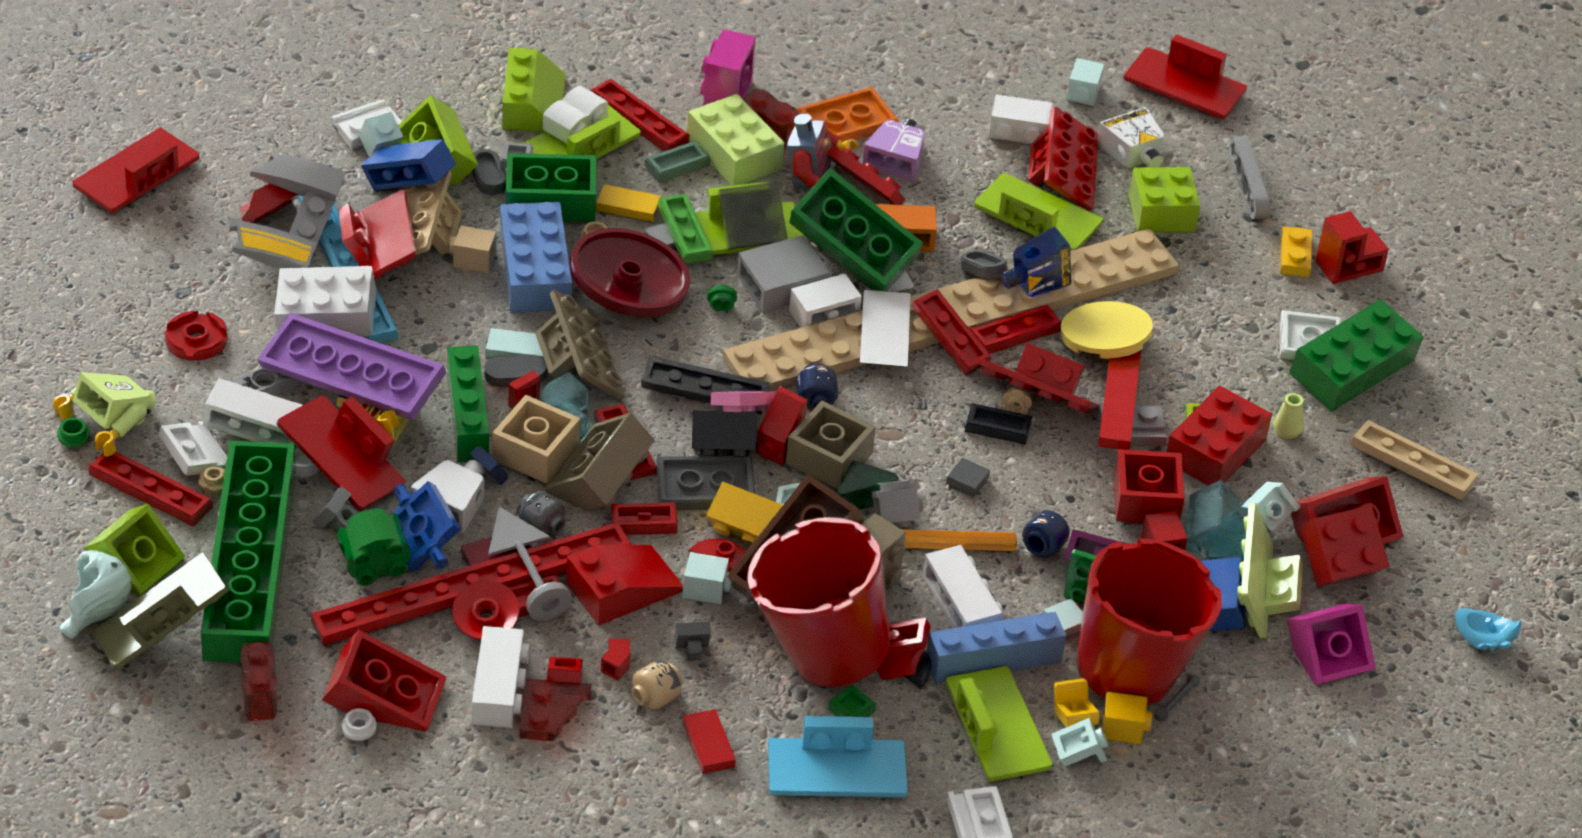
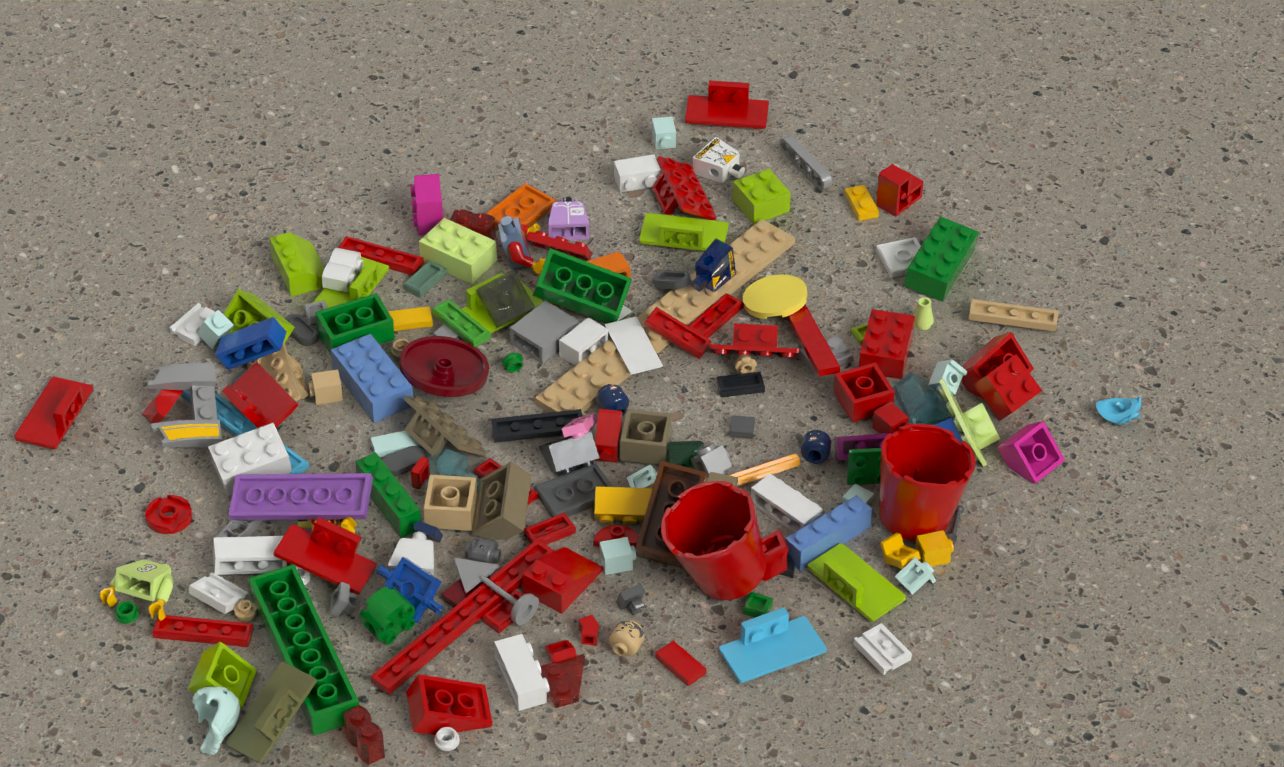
camera: 20 degrees left, 0 degrees up
(483, 598) = (485, 621): red dish -> none

